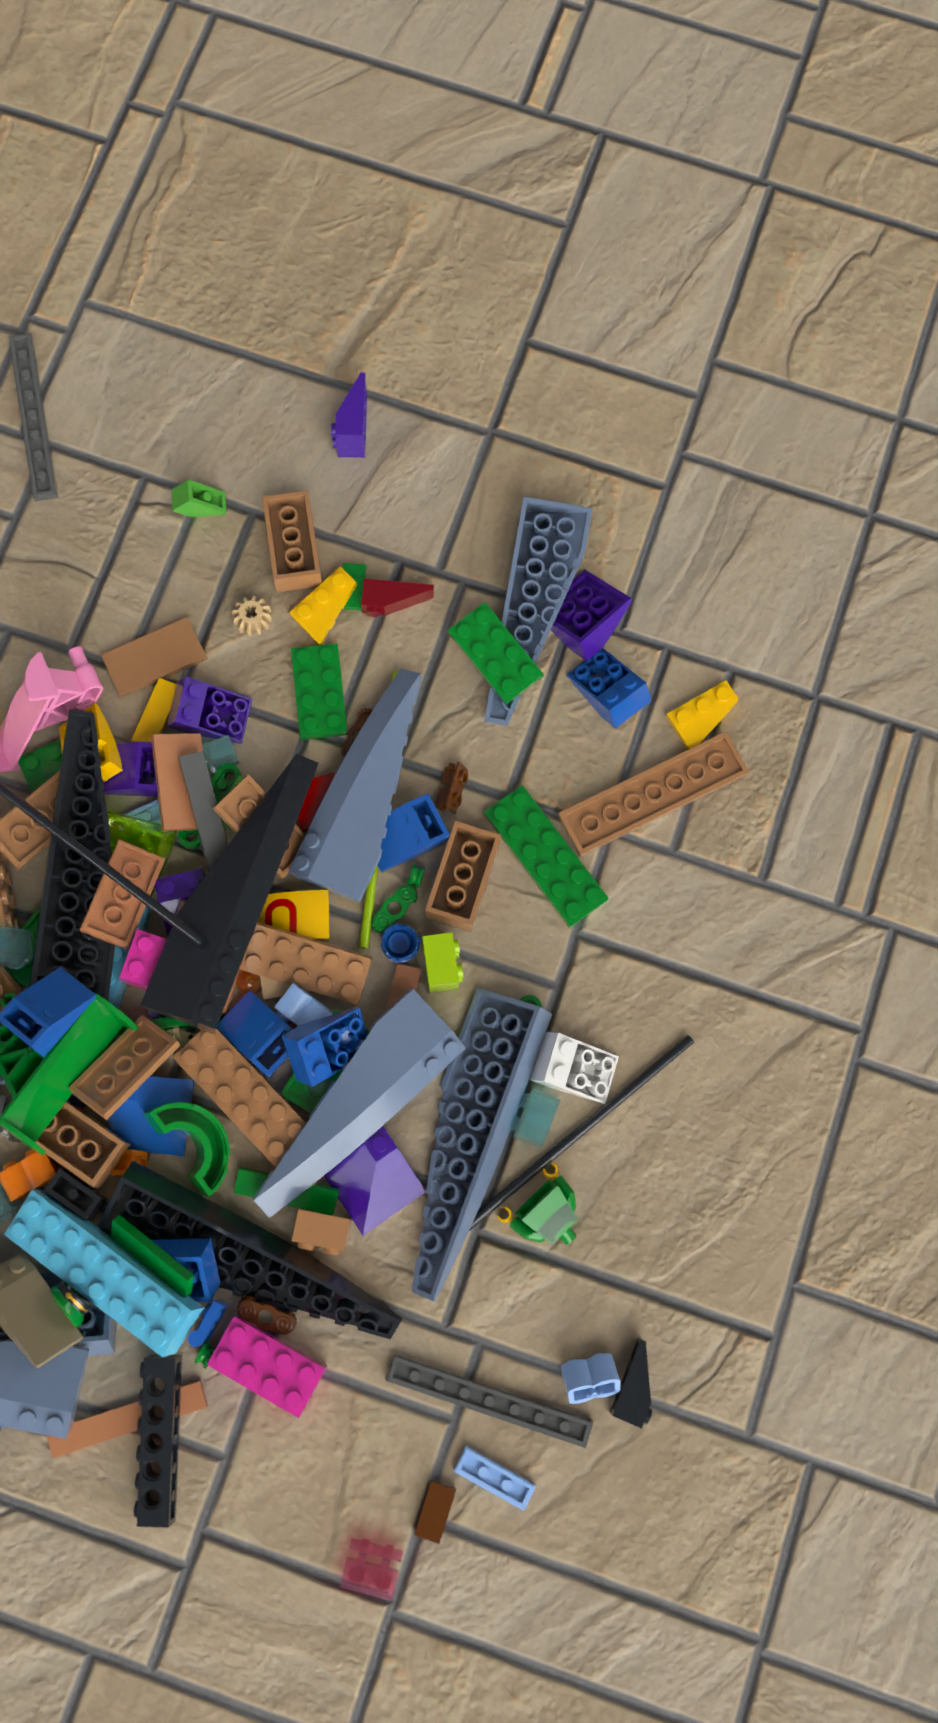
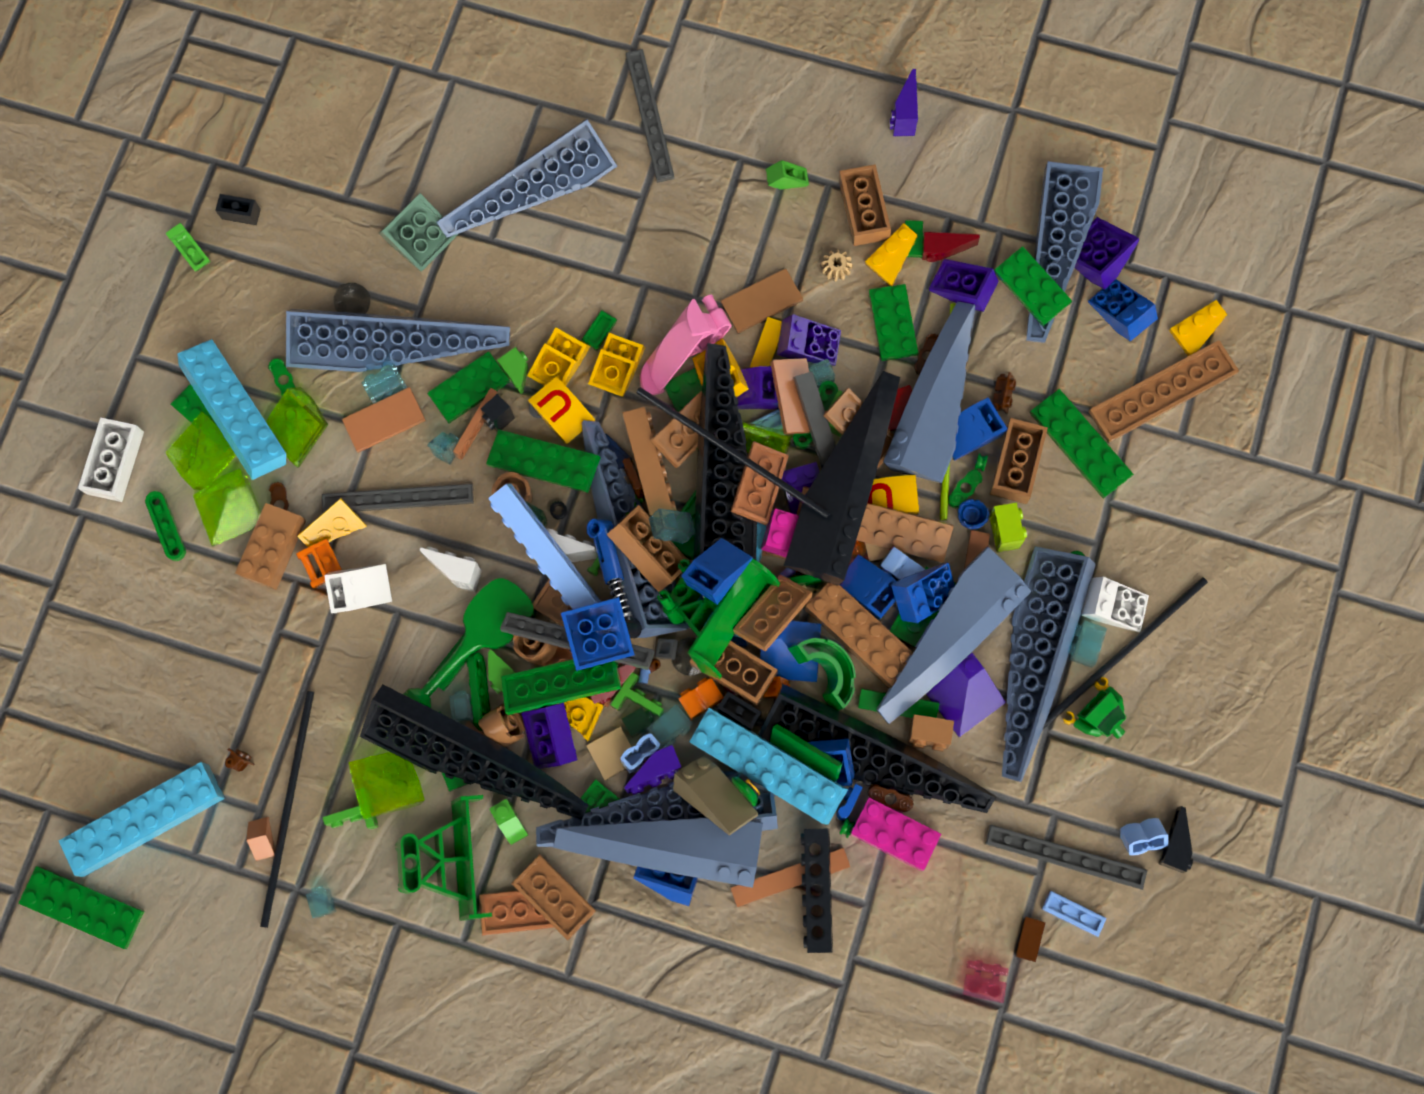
camera: 10 degrees right, 0 degrees up
(412, 646) = (965, 283): none -> dark purple slope

